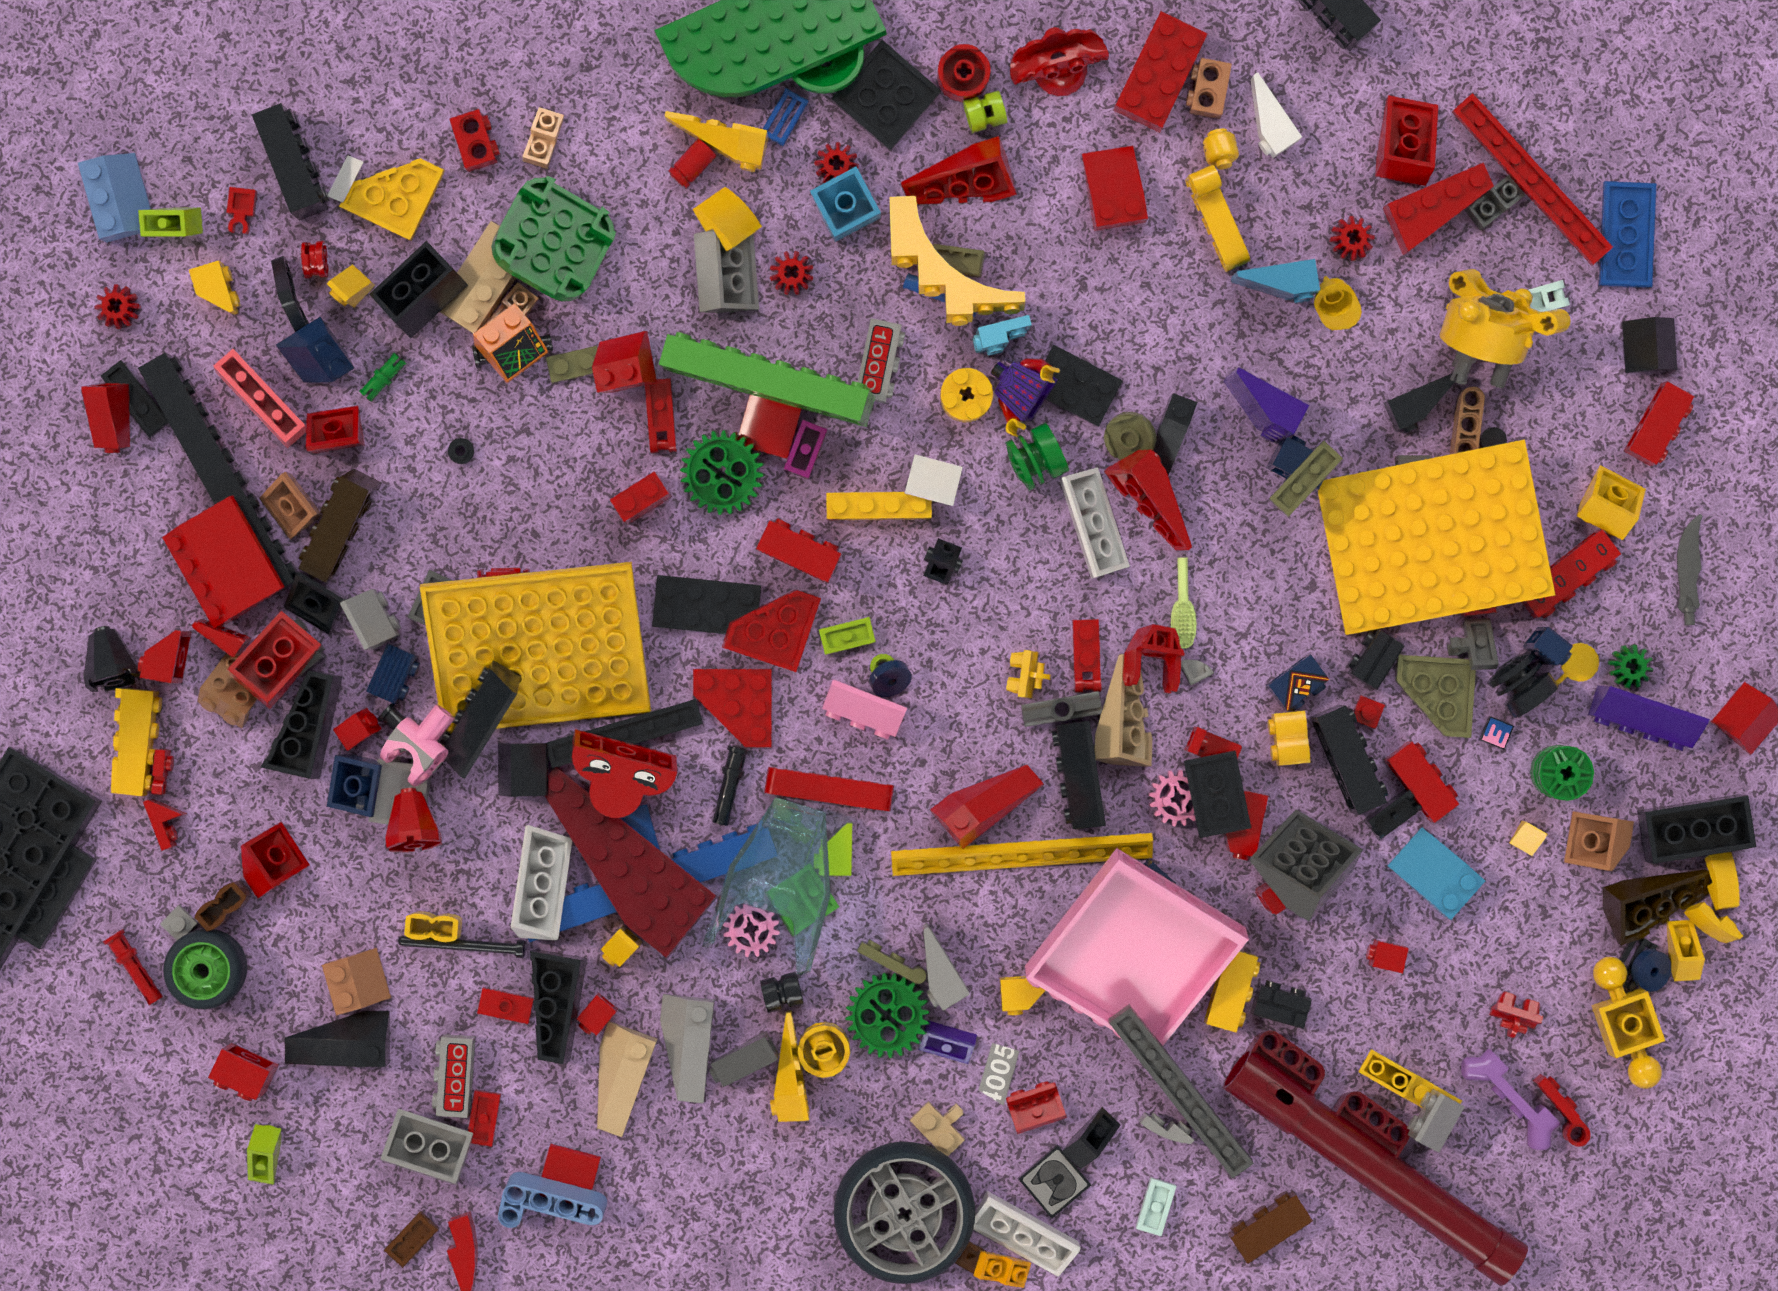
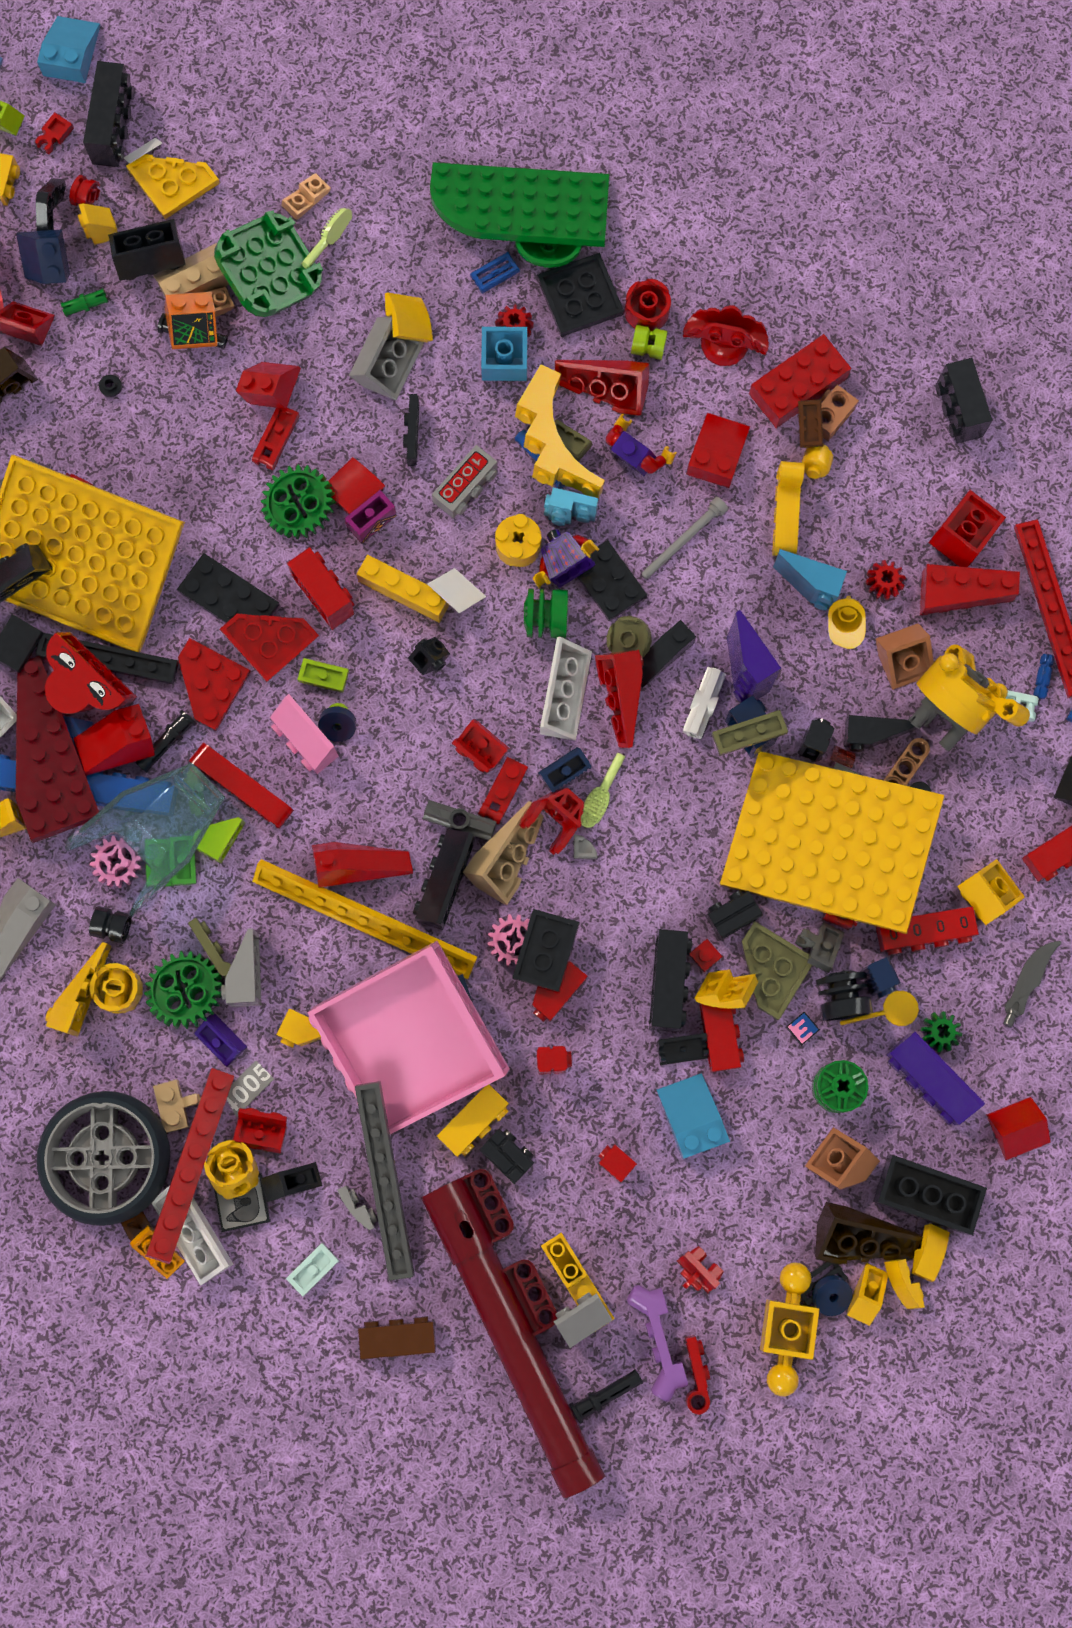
camera: 30 degrees right, 10 degrees down
(200, 104) = (68, 49): none -> dark azure slope
(469, 142) = (250, 171): red brick -> none
(571, 364) = (228, 366): olive plate -> none
(594, 163) = (331, 234): none -> yellowish green piece
(640, 498) = (222, 484): red brick -> none
(683, 814) = (115, 741): none -> red slope
(692, 163) = (405, 268): red piece -> none
(740, 143) = (448, 266): yellow wedge -> none
(744, 1059) = (49, 961): dark grey slope -> none
(767, 380) = (370, 445): bright green brick -> none
(790, 326) = (411, 420): none -> black plate
(791, 282) = (427, 388): red gear -> none
(992, 1176) = (189, 1166): none -> red plate
(1031, 240) = (633, 452): none -> torso
(1031, 673) = (449, 780): yellow hips -> none
(1031, 1158) = (231, 1169): none -> yellow brick
(1042, 625) = (480, 746): none -> red bracket
(1138, 605) = (564, 769): none -> dark blue brick
(1144, 253) = (716, 508): none -> light grey piece
(1197, 117) = (810, 423): none -> reddish brown plate
(1205, 743) = (558, 905): red bracket -> none
(1238, 462) = (704, 703): none -> white piece
(1273, 124) = (868, 467): white slope -> none
(1290, 738) = (630, 942): yellow brick -> none
(1297, 683) = (660, 900): brick -> none
(1305, 863) = (587, 1044): dark grey slope -> none
(1368, 443) = (816, 739): none -> black brick
(1401, 444) = (843, 756): none -> clear red tile
(1408, 739) = (725, 991): none -> yellow slope
(1411, 306) = (905, 655): none -> nougat slope
(1482, 1182) = (595, 1401): none -> black pin
(1494, 202) = (1013, 612): dark grey slope -> none
(1528, 838) = (784, 1128): yellow slope -> none
(1556, 254) = (1044, 676): none -> blue axle

